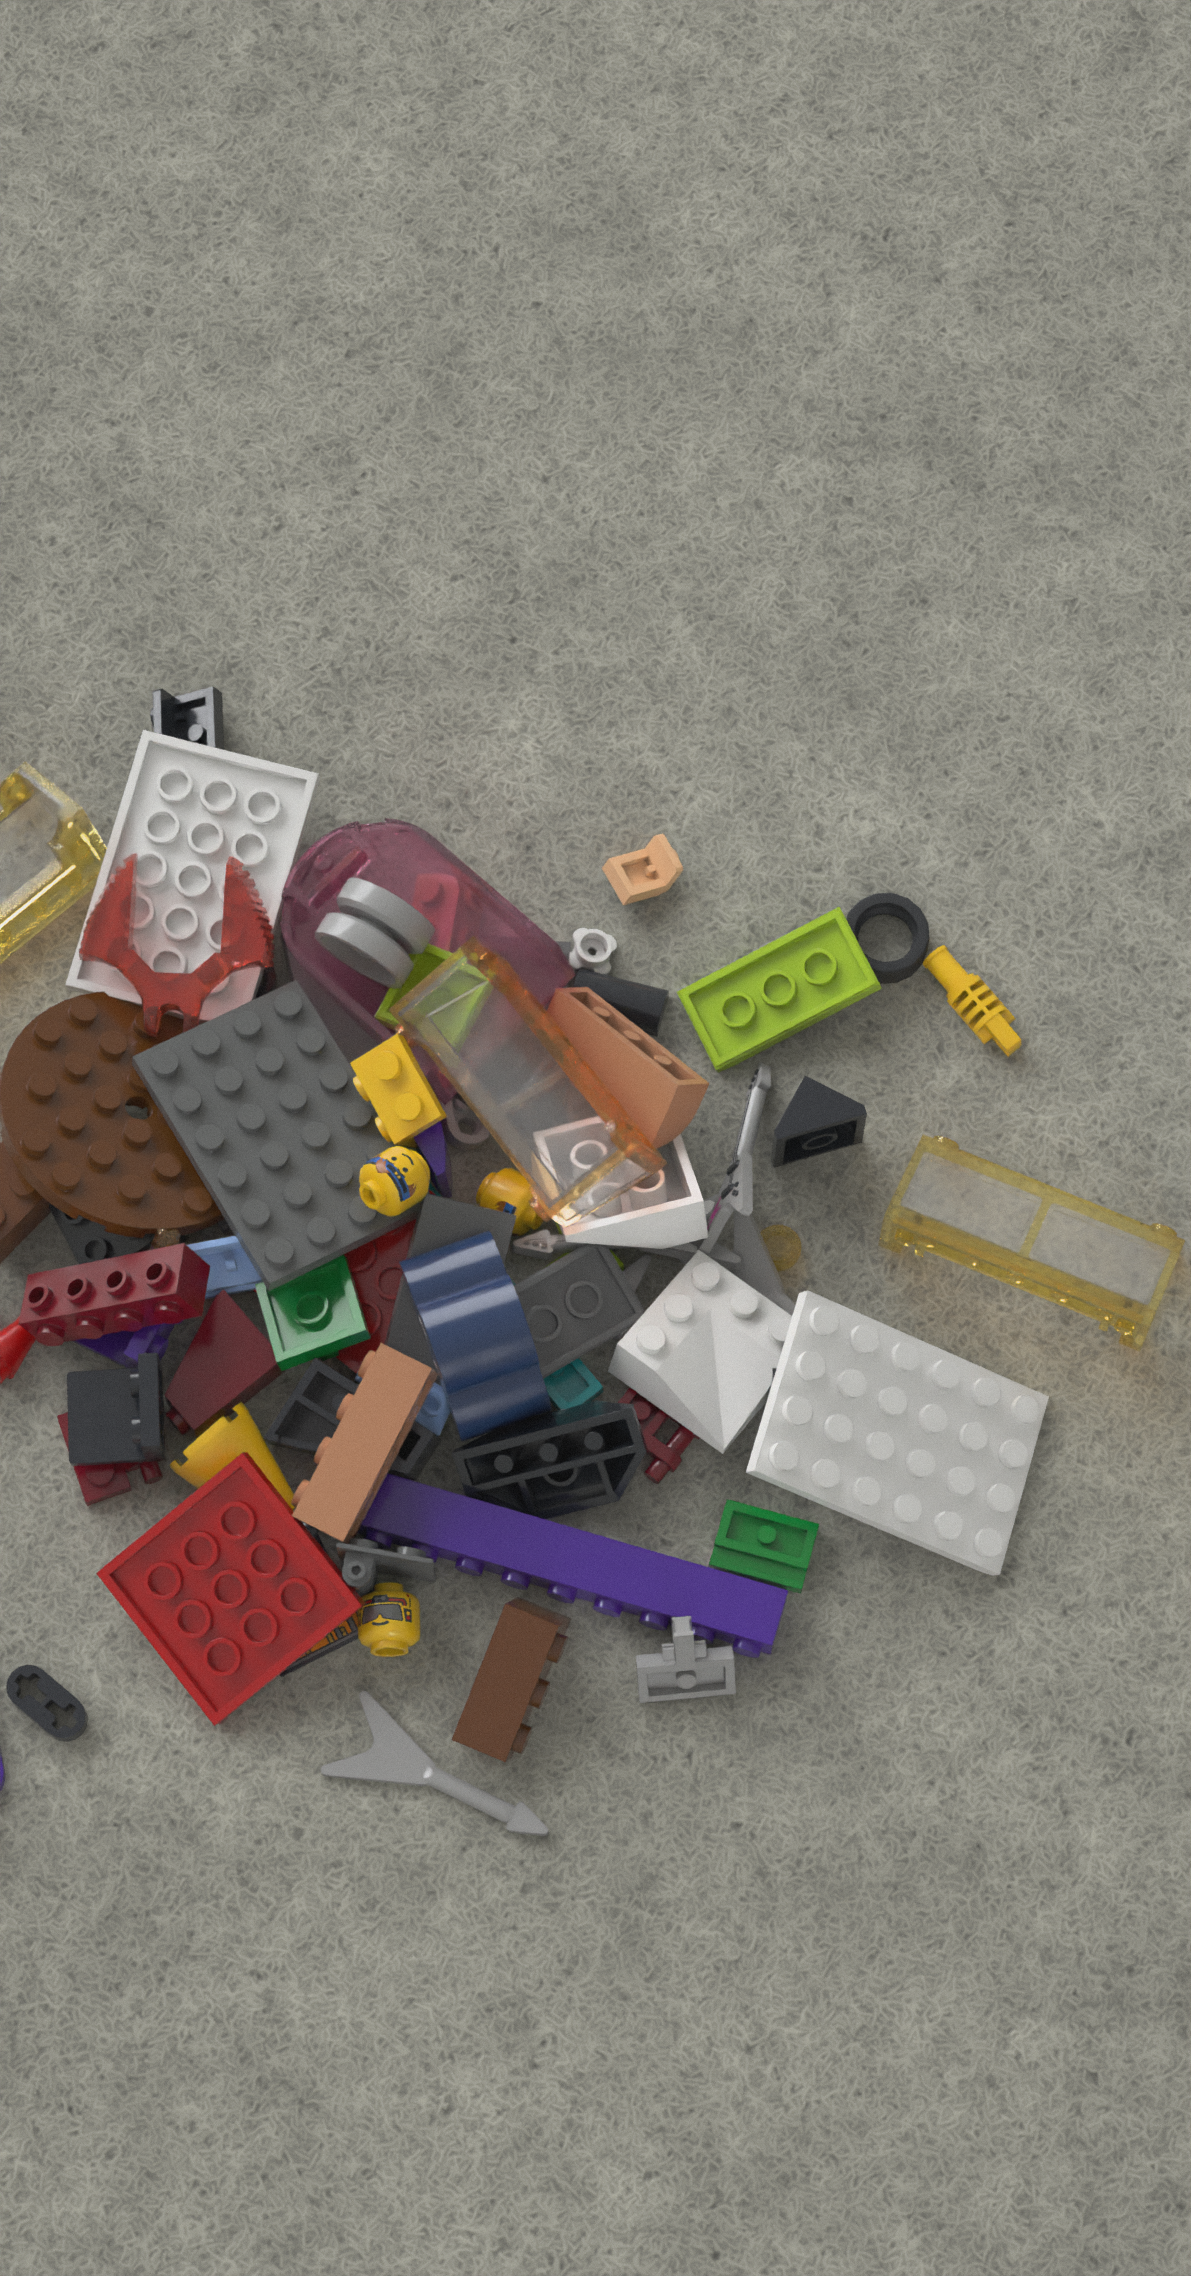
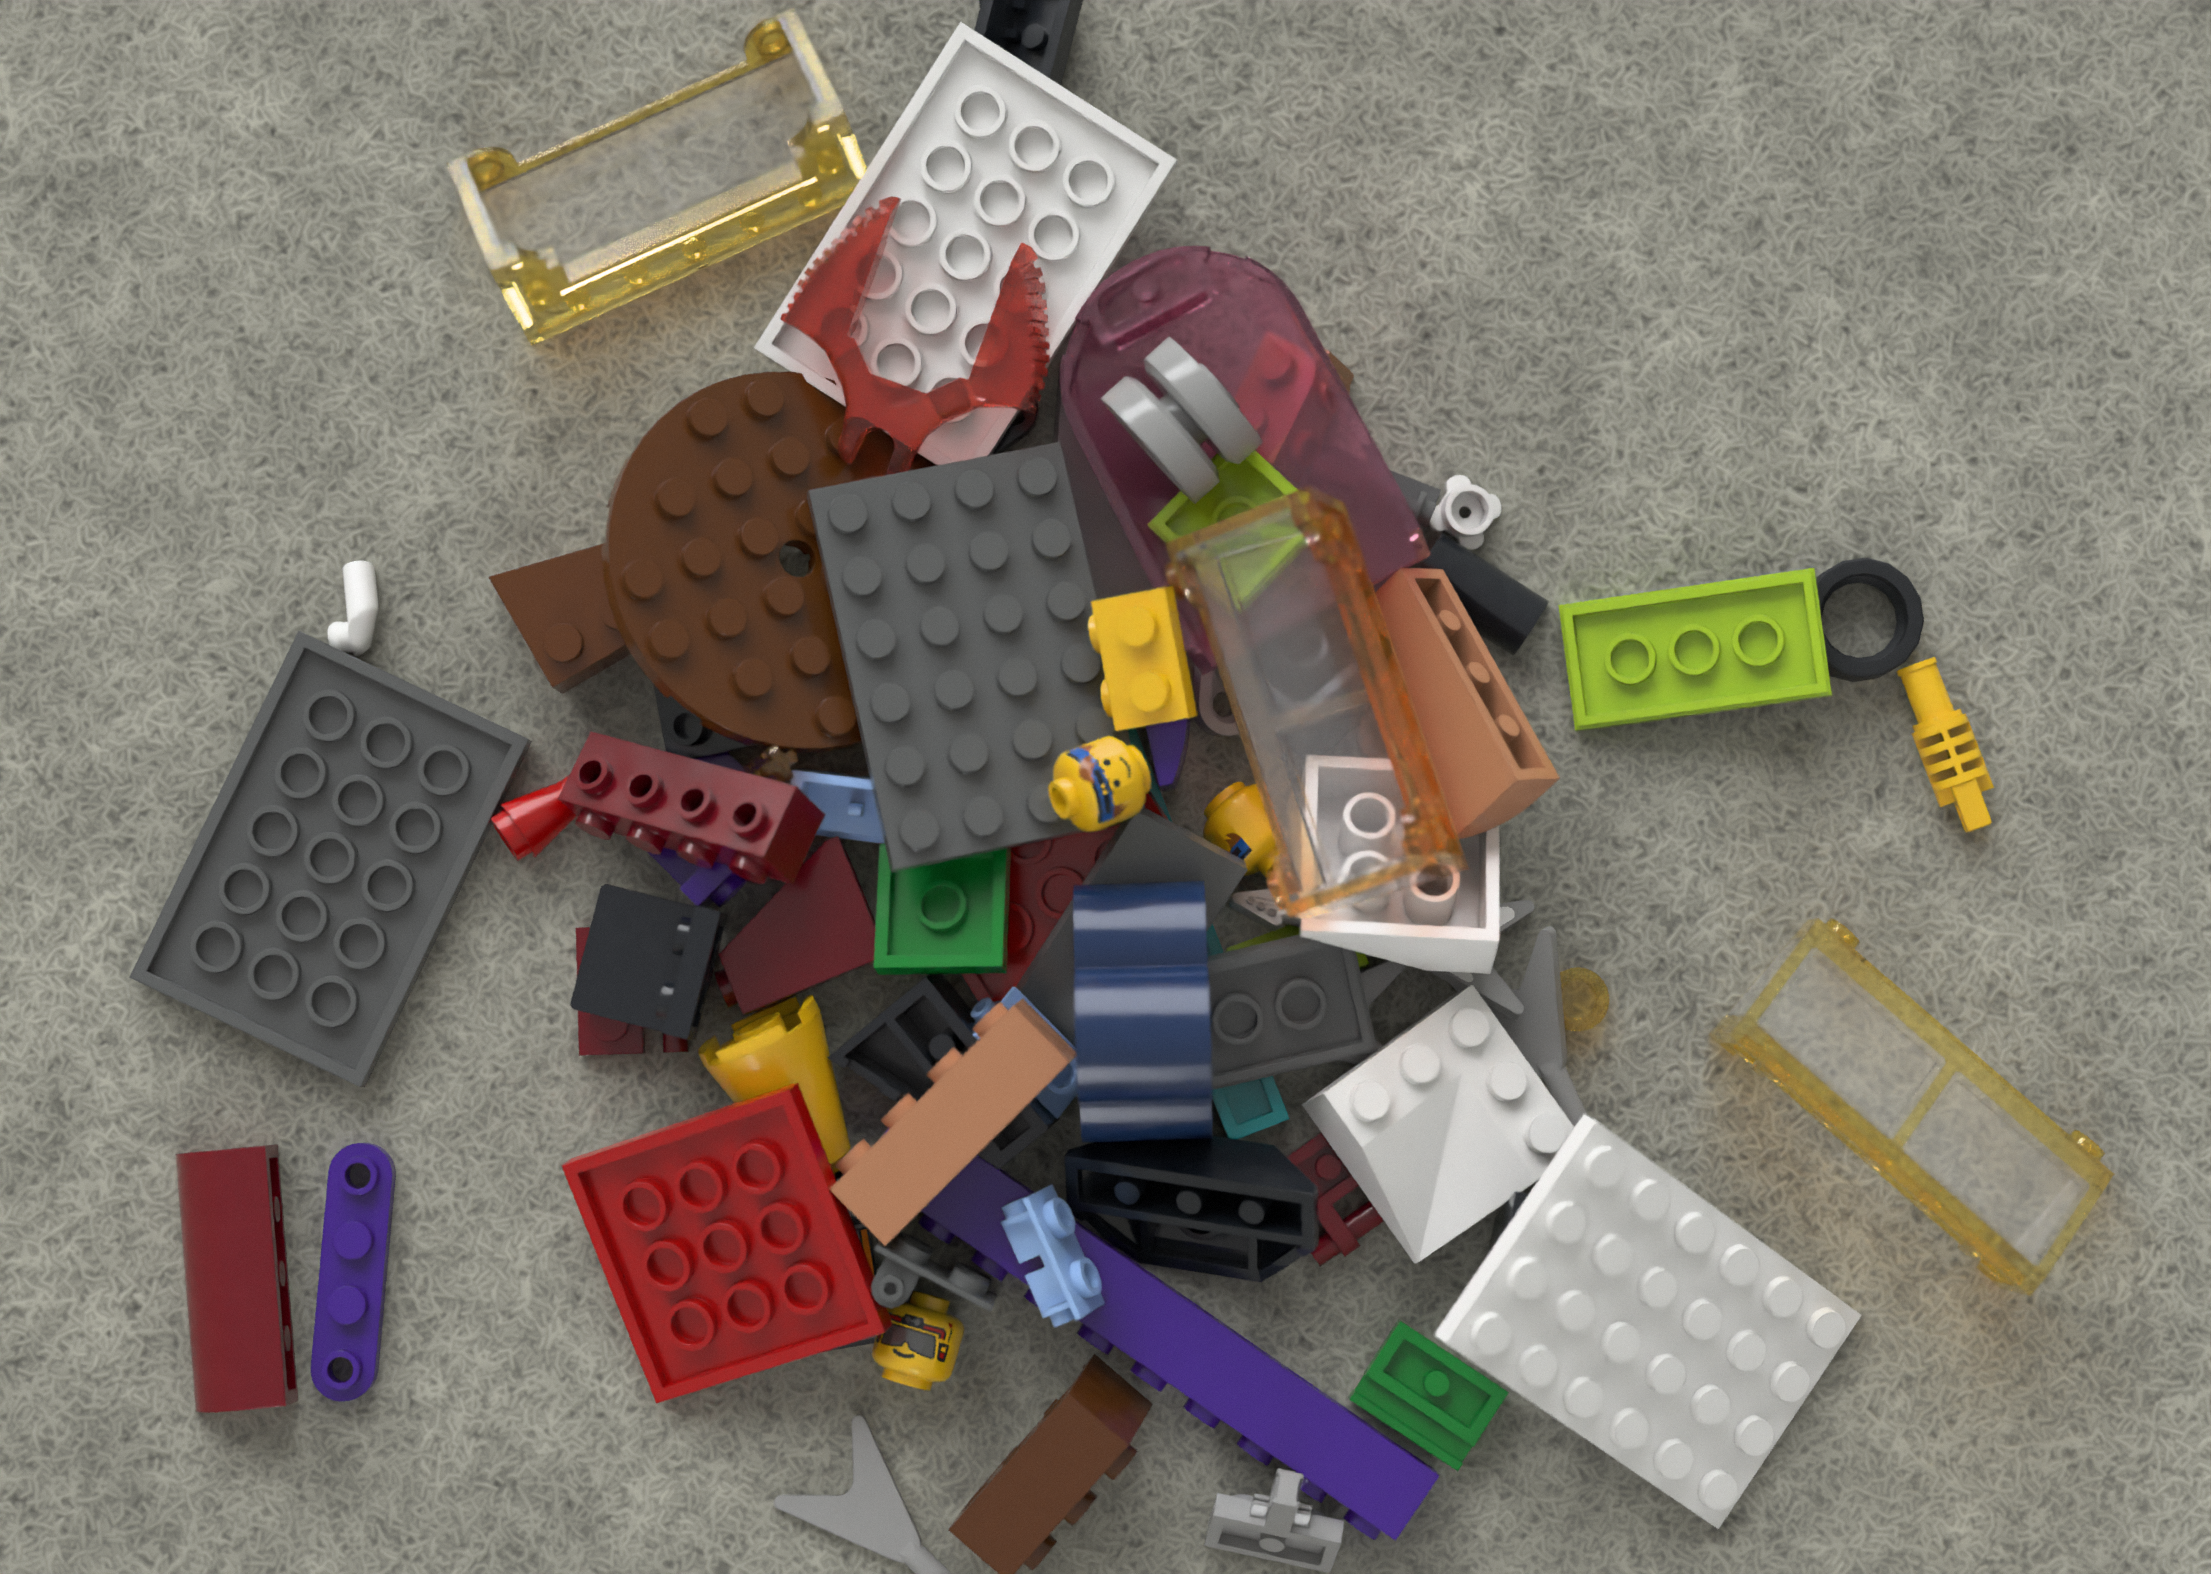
camera: 15 degrees right, 15 degrees up
(38, 1711) = (441, 1310): black beam -> none
(479, 1531) = (1046, 1227): none -> light blue hinge
(644, 871) = (1570, 424): light nougat bracket -> none
(738, 1183) = (1549, 917): light grey piece -> none
(816, 1124) = (1683, 853): black slope -> none

